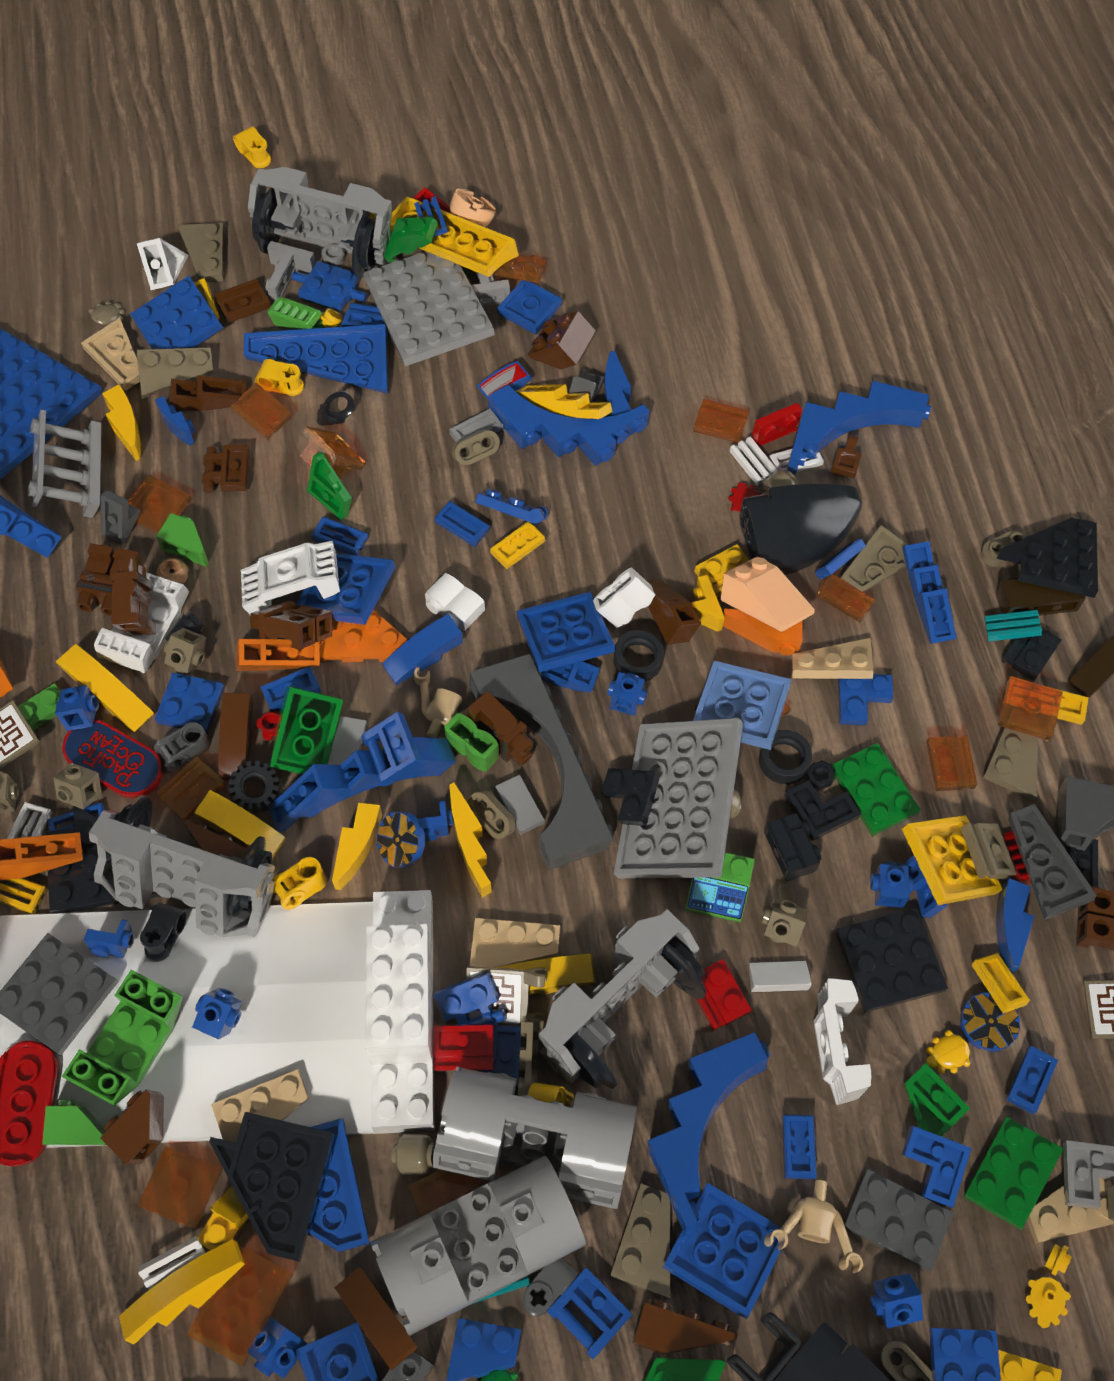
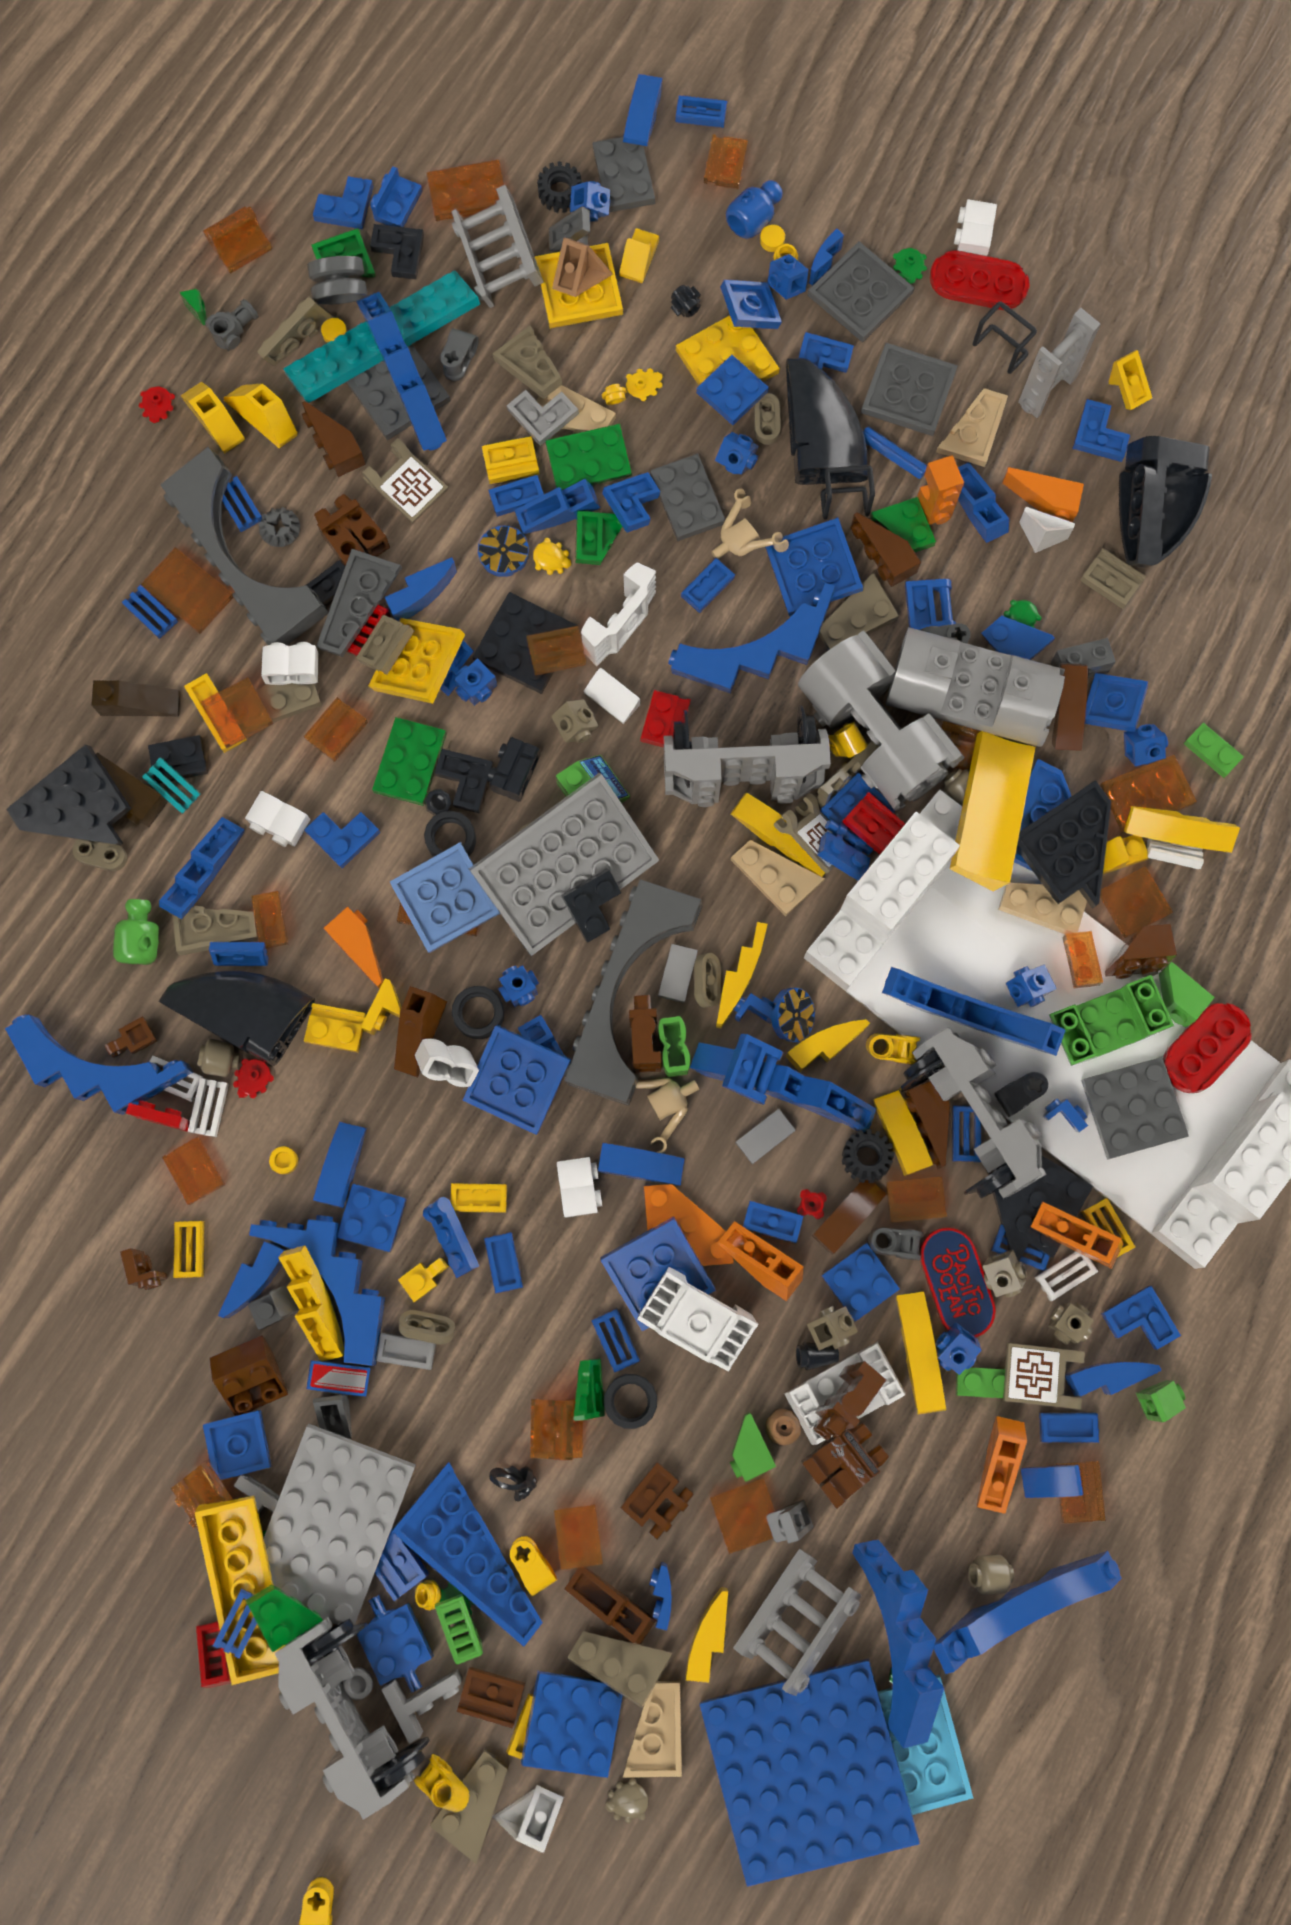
camera: 135 degrees left, 15 degrees up
(189, 1083) = (1082, 959): none -> clear orange plate
(231, 238) = (439, 1781): none -> yellow piece
(253, 951) = (973, 1012): none -> blue arch
(292, 492) = (645, 1417): none -> black tyre
(296, 623) = (732, 1267): reddish brown hips -> none
(304, 730) = (790, 1170): green slope -> none
(369, 1140) = (992, 810): none -> yellow arch
(471, 208) = (185, 1609): light nougat cylinder -> none
(487, 360) = (334, 1414): none -> dark grey slope
(507, 472) = (421, 1280): none -> yellow plate
(577, 482) = (371, 1218): none -> blue plate
(630, 490) = (340, 1165): none -> blue slope
(671, 381) = (199, 1269): none -> yellow tile
(671, 470) = (283, 1160): none -> yellow tile
(689, 337) = (137, 1270): none -> reddish brown bracket
(765, 594) = (335, 964): light nougat slope -> none
(838, 661) = (334, 874): tan wing -> none
(859, 961) = (556, 650): none -> clear orange plate
(917, 665) = (277, 819): none -> white brick
(918, 514) = (137, 937): none -> bright green piece
(989, 1101) = (557, 507): none -> blue slope
(1000, 982) = (471, 564): yellow tile -> none
(1036, 774) = (290, 664): none -> white brick
(1072, 1107) = (510, 460): none -> yellow plate

